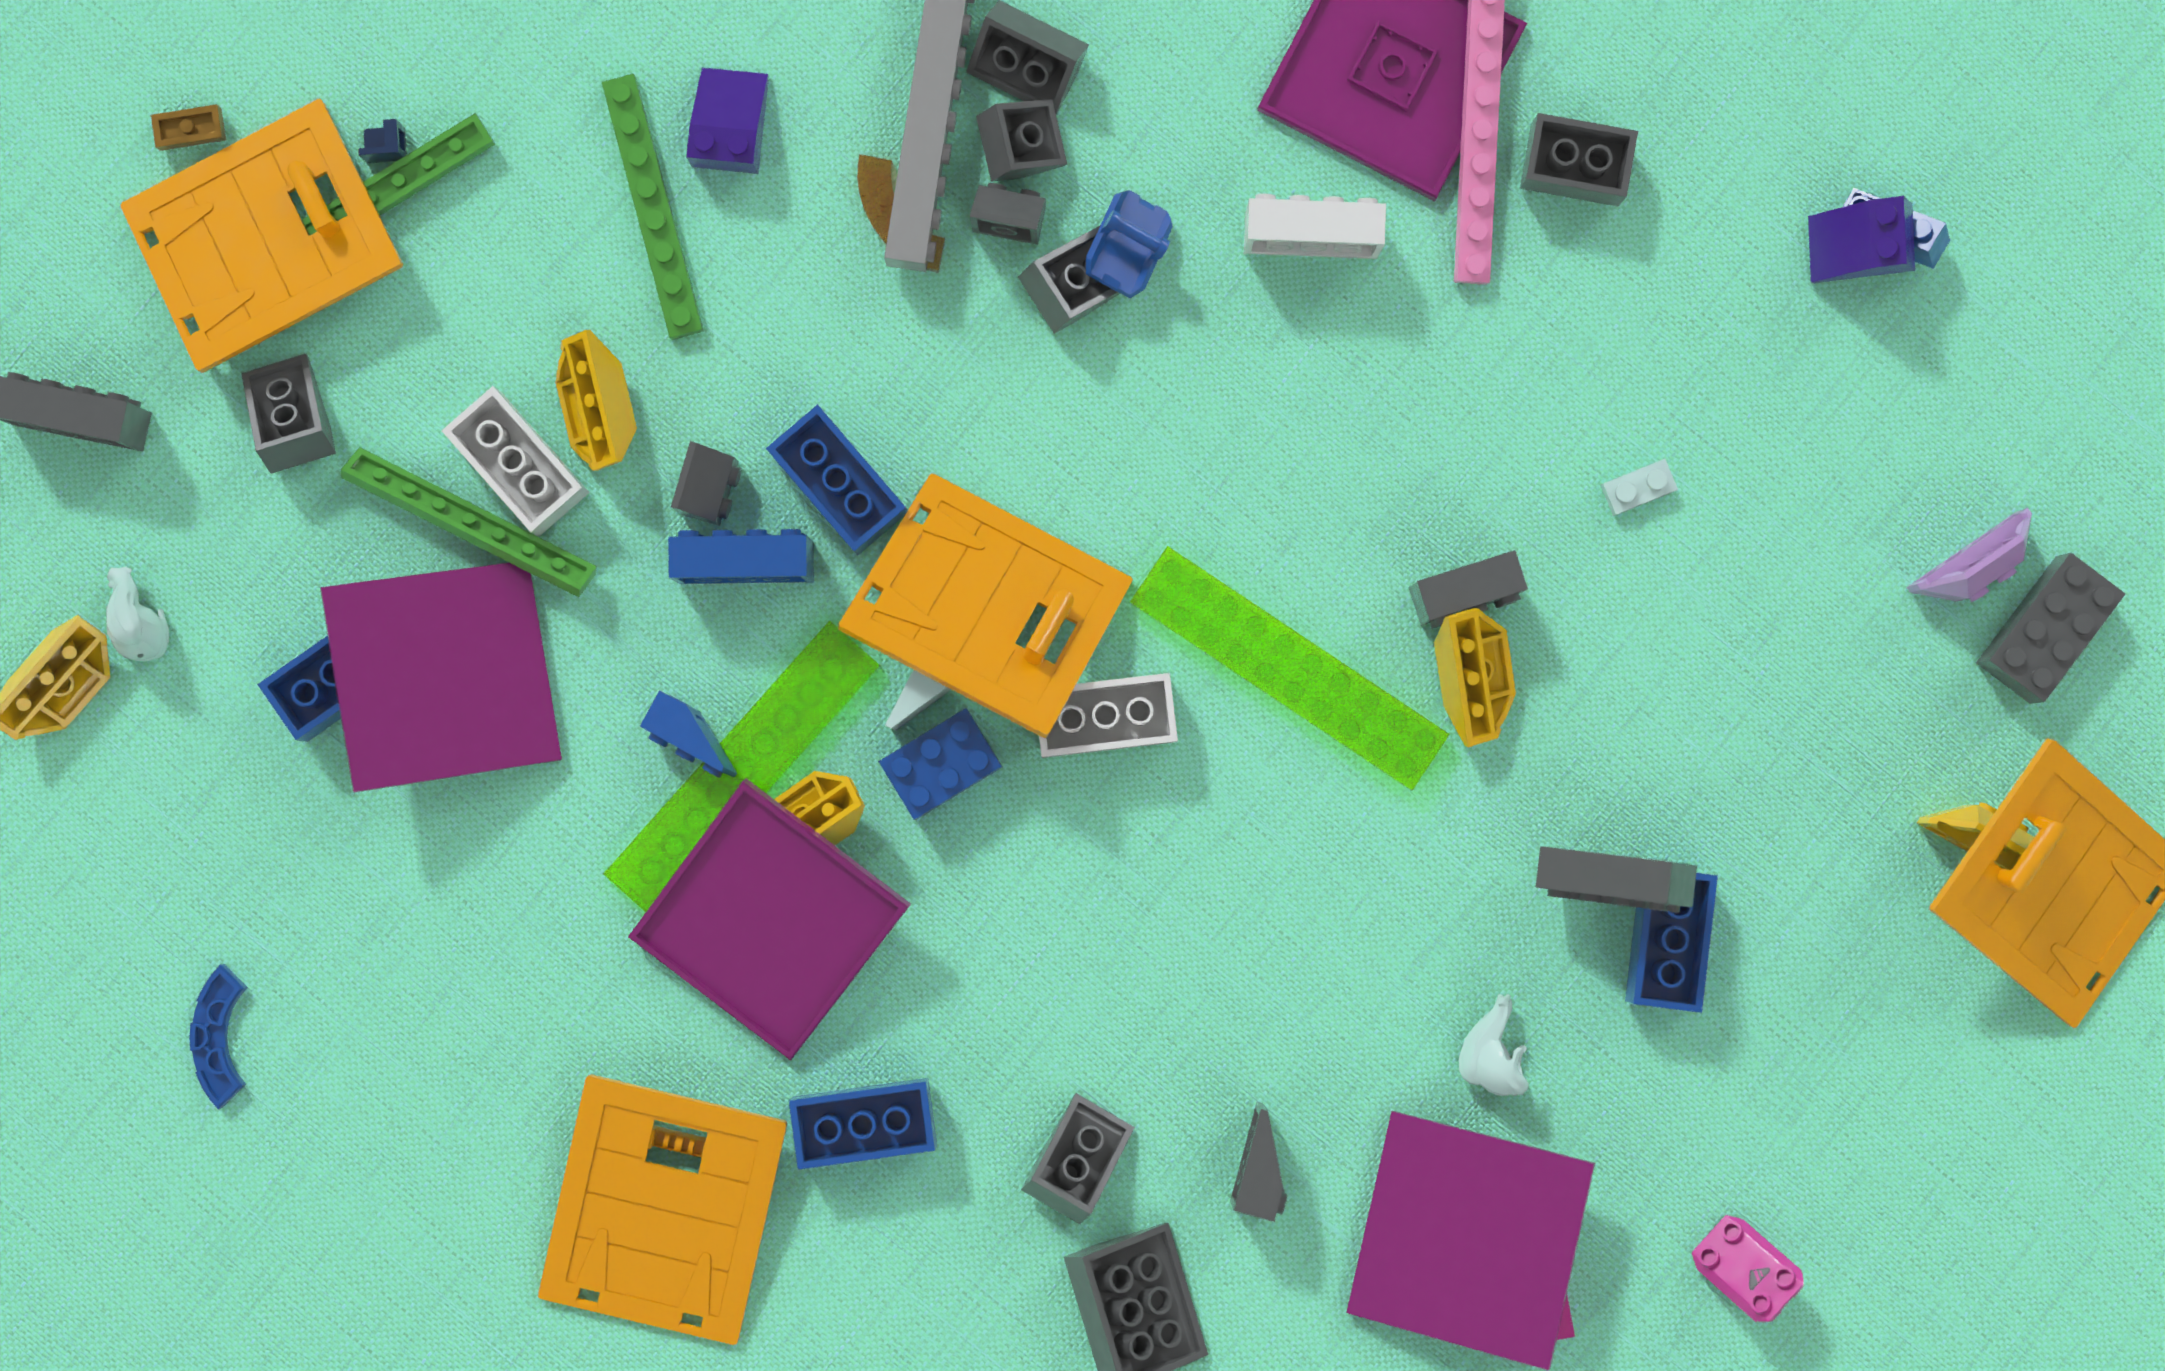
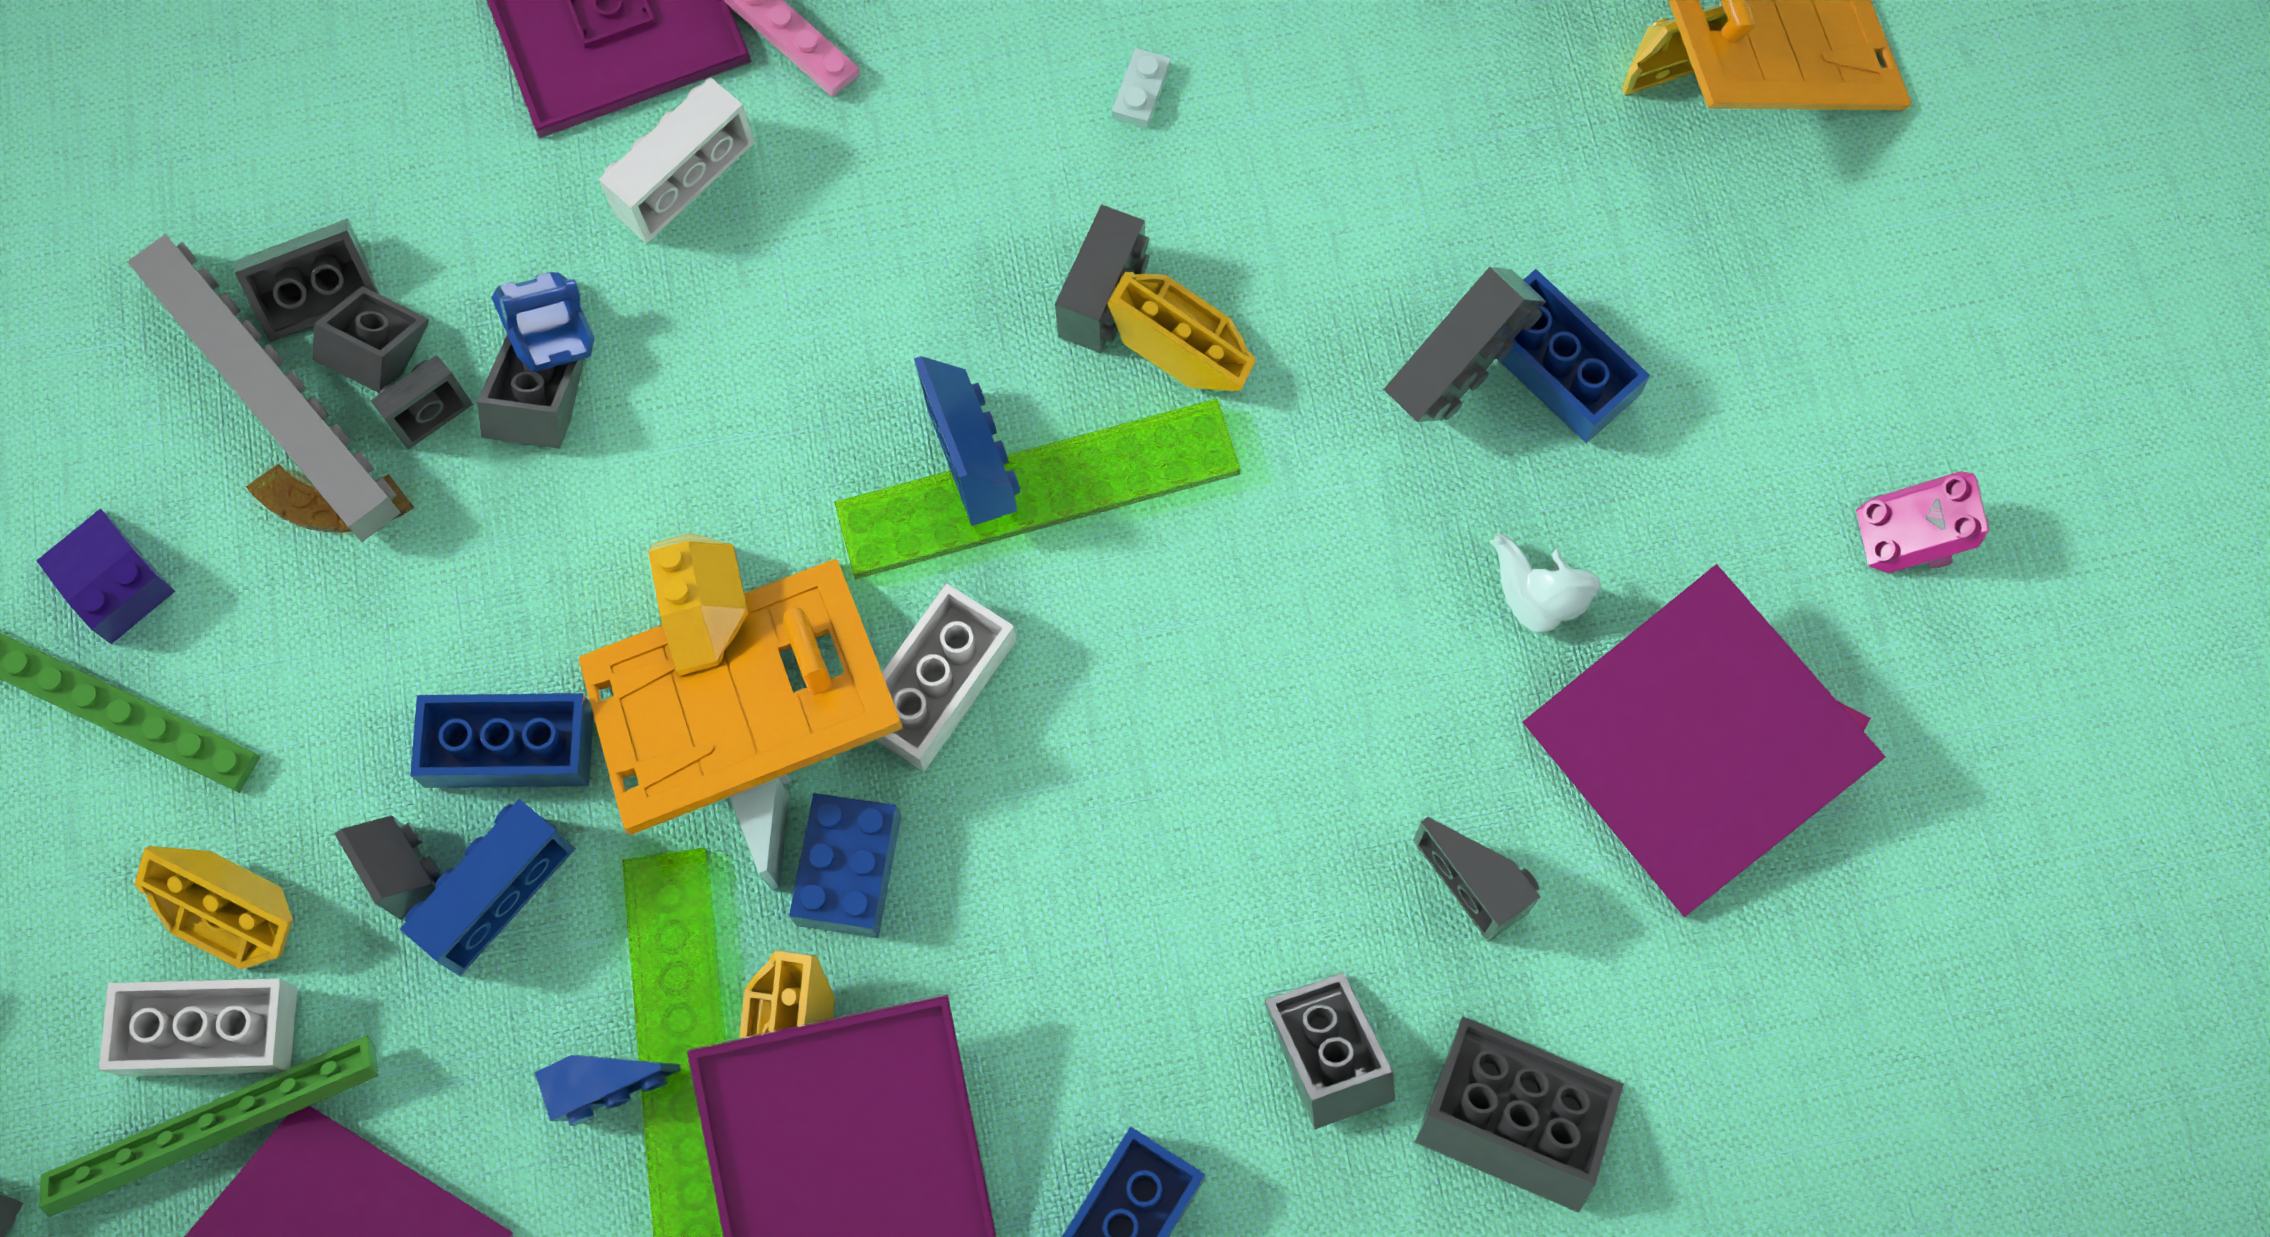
camera: 50 degrees left, 15 degrees down
(1030, 517) = (697, 598): none -> yellow wedge
(1277, 601) = (968, 440): none -> blue slope

